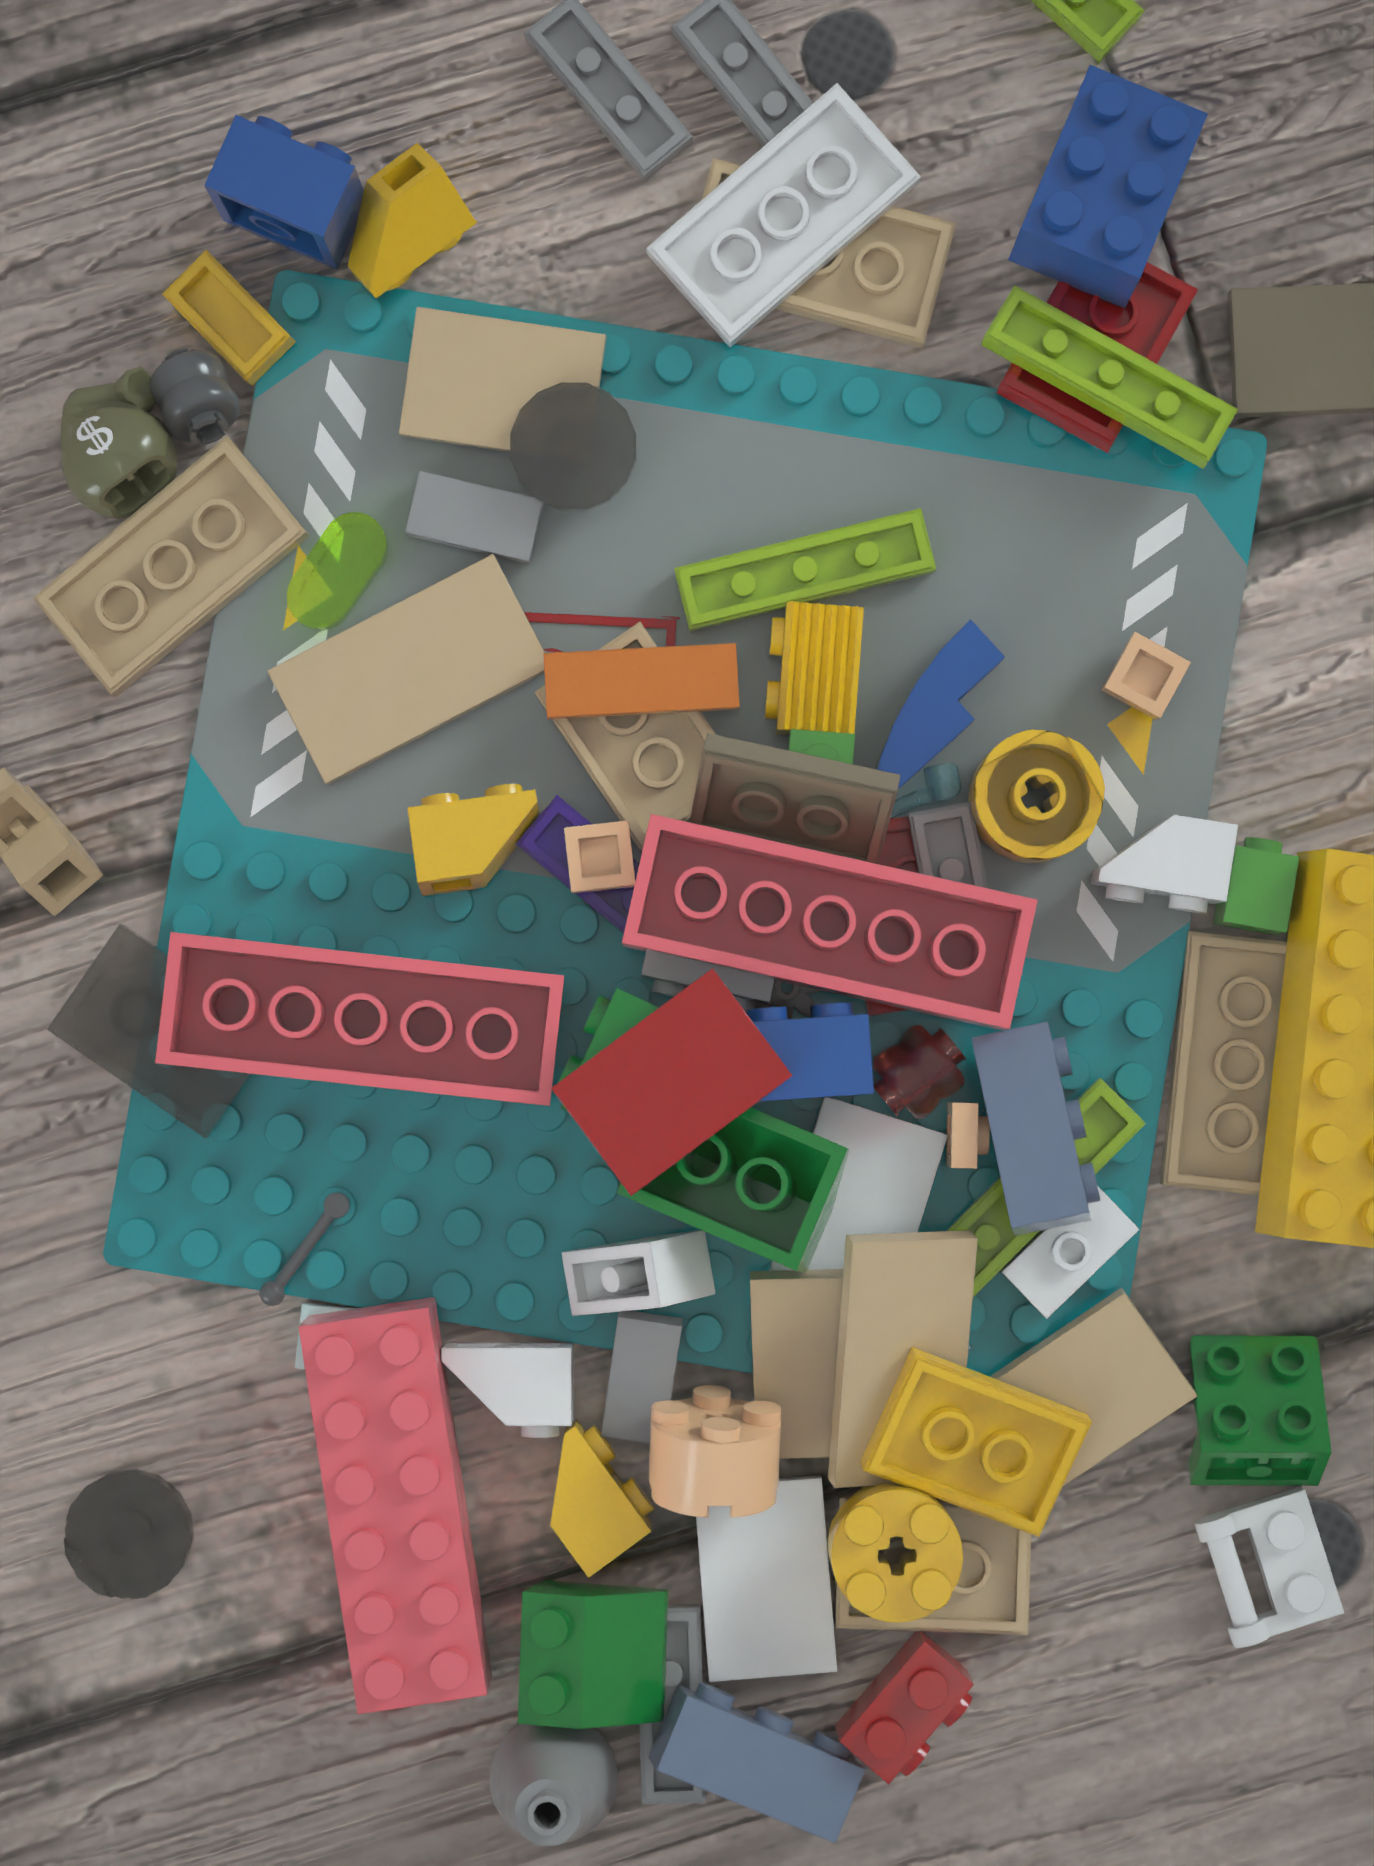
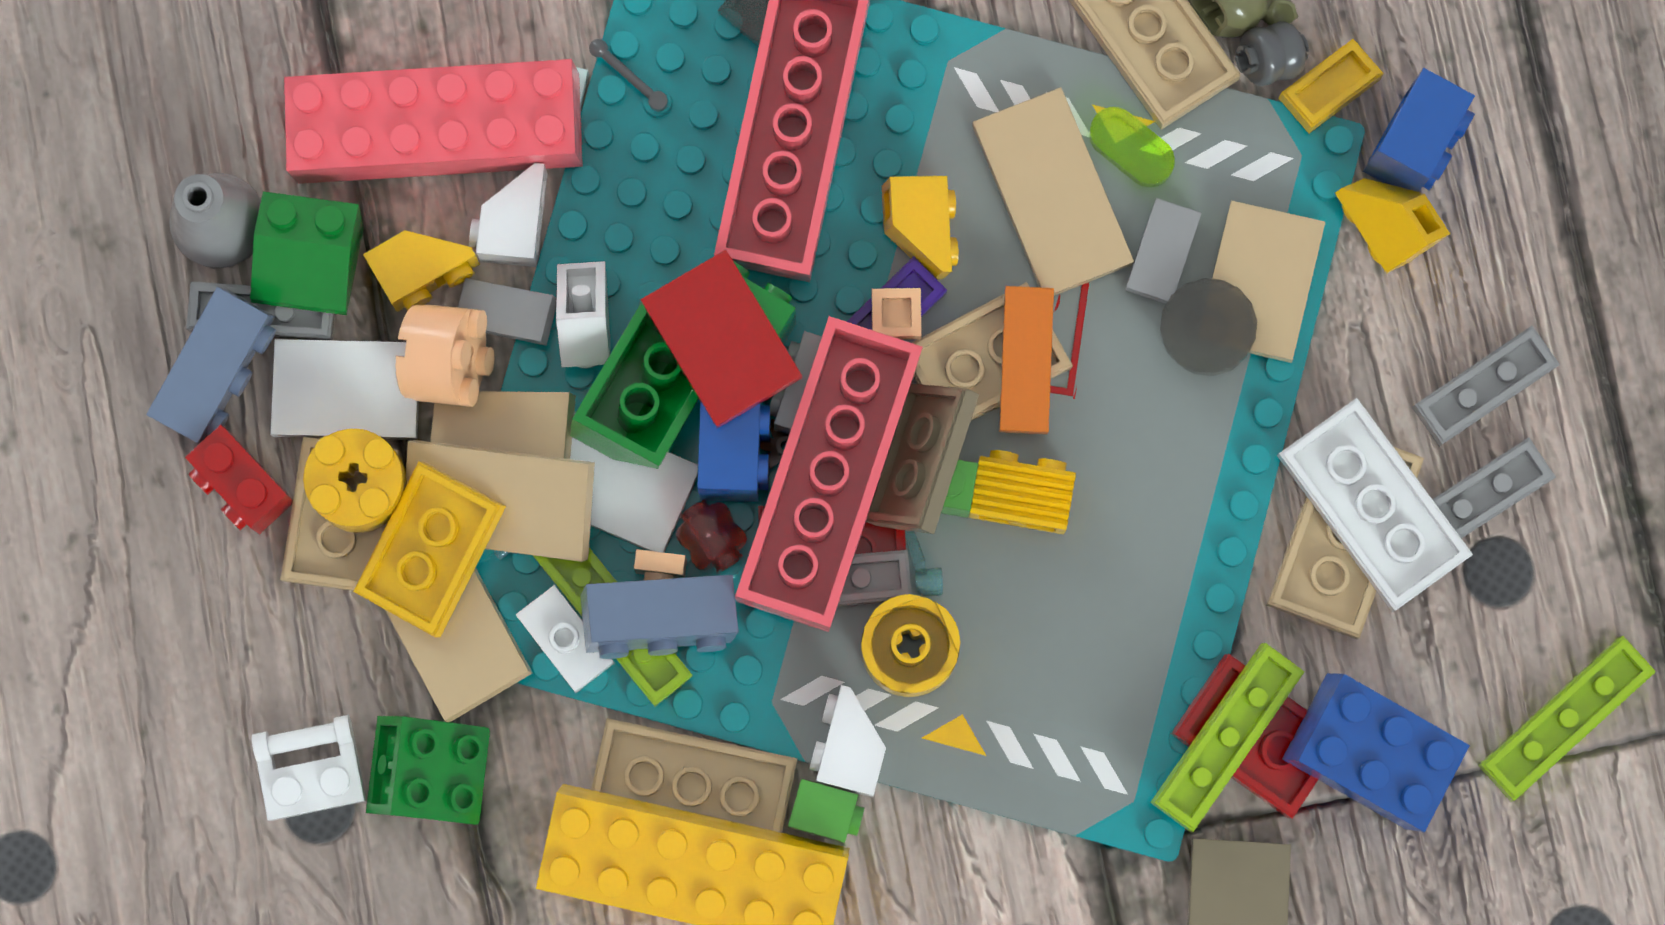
camera: 95 degrees right, 5 degrees down
(805, 569) = (1101, 494): lime tile -> none
(933, 710) = (983, 575): blue slope -> none
(1146, 676) = (995, 743): light nougat plate -> none

